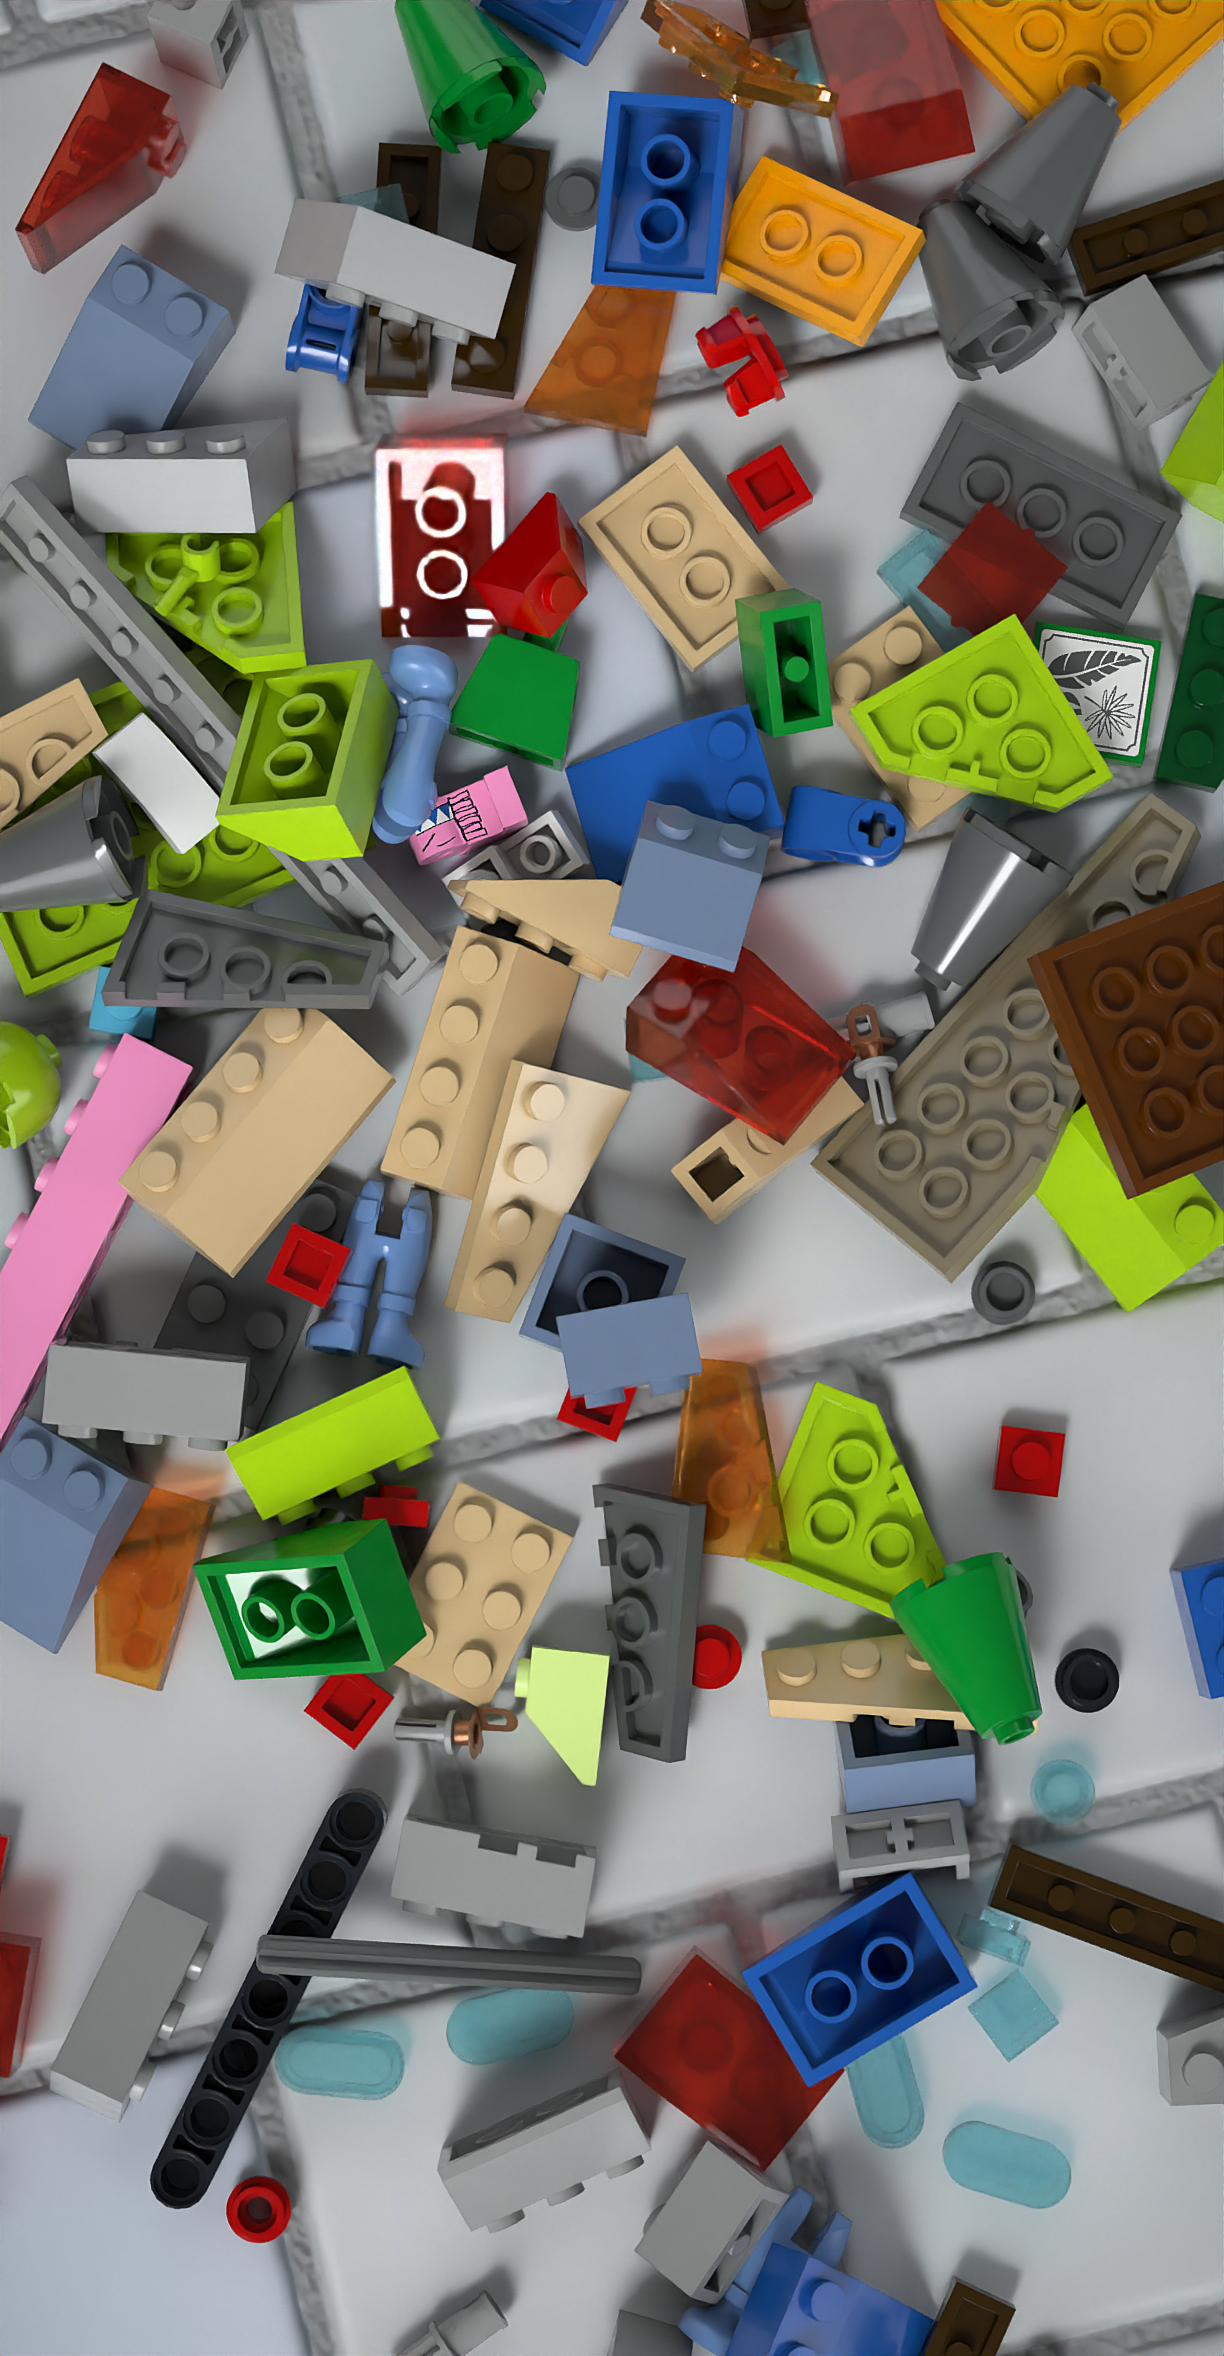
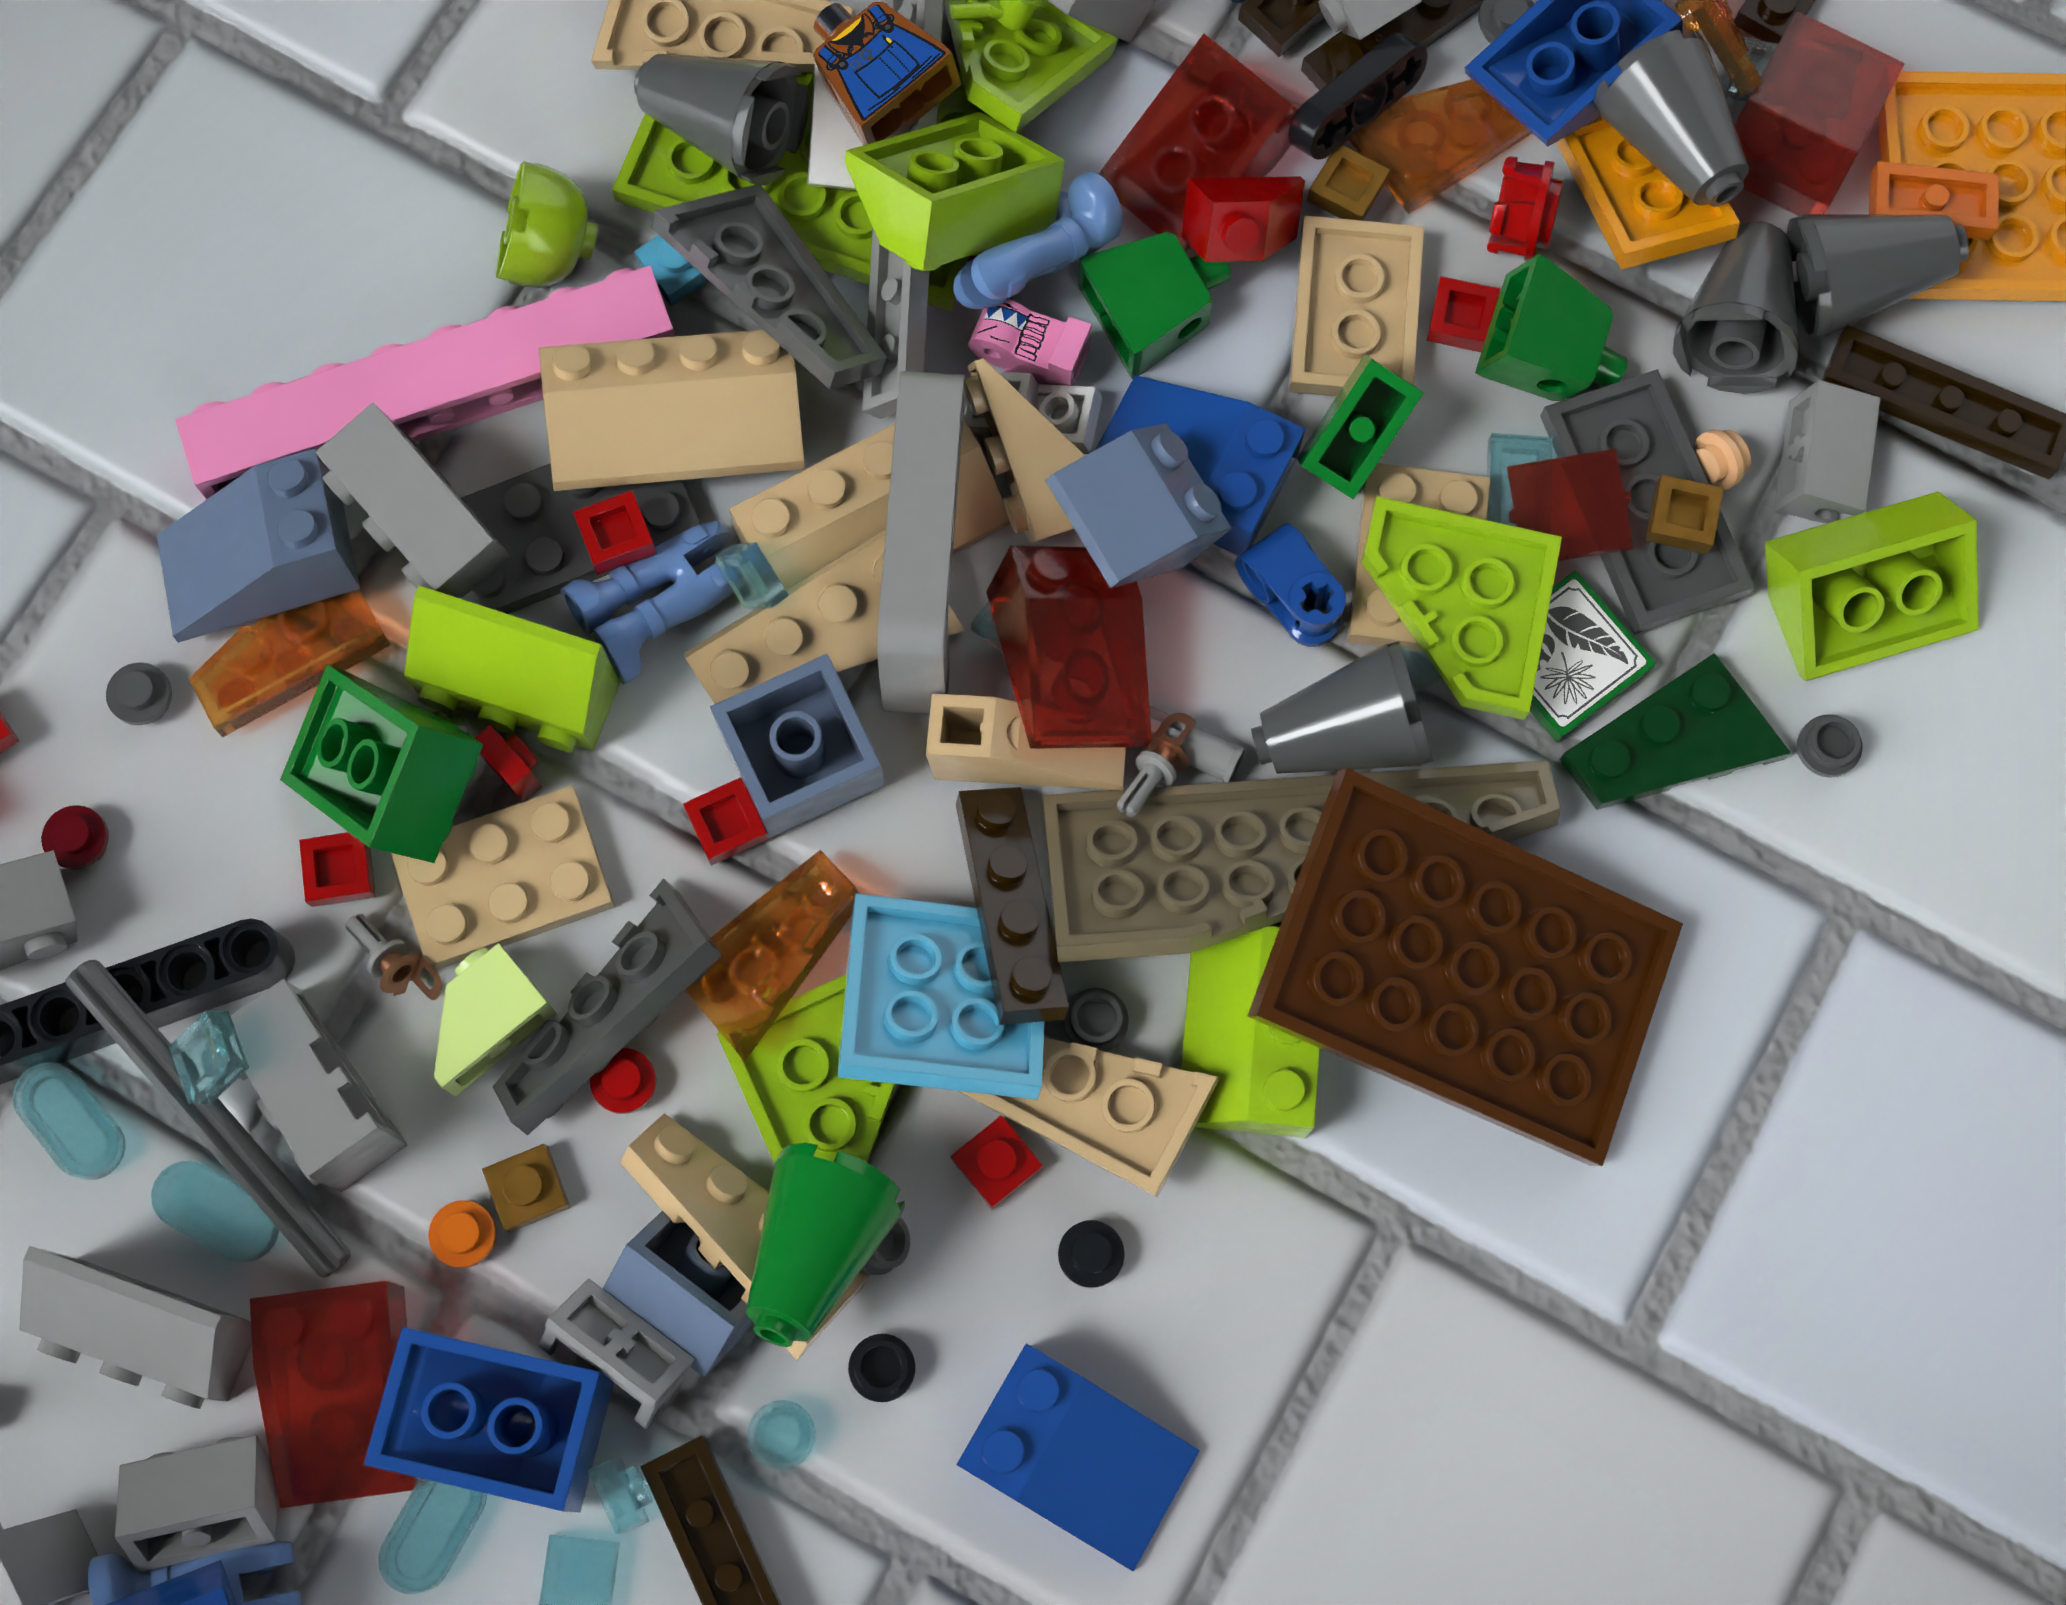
camera: 45 degrees right, 10 degrees down
(66, 1718) = (139, 693): none -> dark grey plate
(130, 1864) = (76, 836): none -> dark red plate
(164, 719) = (881, 69): none -> torso
(416, 1924) = (208, 1057): none -> clear light blue plate
(445, 1204) = (751, 576): none -> clear light blue tile
(531, 384) = (1357, 96): none -> black beam
(554, 1057) = (920, 541): none -> light grey beam
(584, 461) = (1348, 184): none -> pearl gold plate
(629, 1348) = (768, 772): sand blue brick -> none
(703, 1870) = (462, 1234): none -> orange plate
(714, 1796) = (526, 1188): none -> pearl gold plate
(807, 189) = (1677, 116): none -> dark grey cone
(853, 451) = (1549, 335): none -> green torso
(870, 1270) = (1011, 906): none -> dark brown plate
(891, 1382) = (927, 1006): none -> medium azure plate
(1045, 67) = (1963, 195): none -> orange plate
(1057, 1359) = (1112, 1110): none -> tan wing
(1067, 429) = (1722, 457): none -> light nougat plate
(1085, 508) = (1684, 514): none -> pearl gold plate
(1157, 1463) = (1091, 1254): none -> black plate

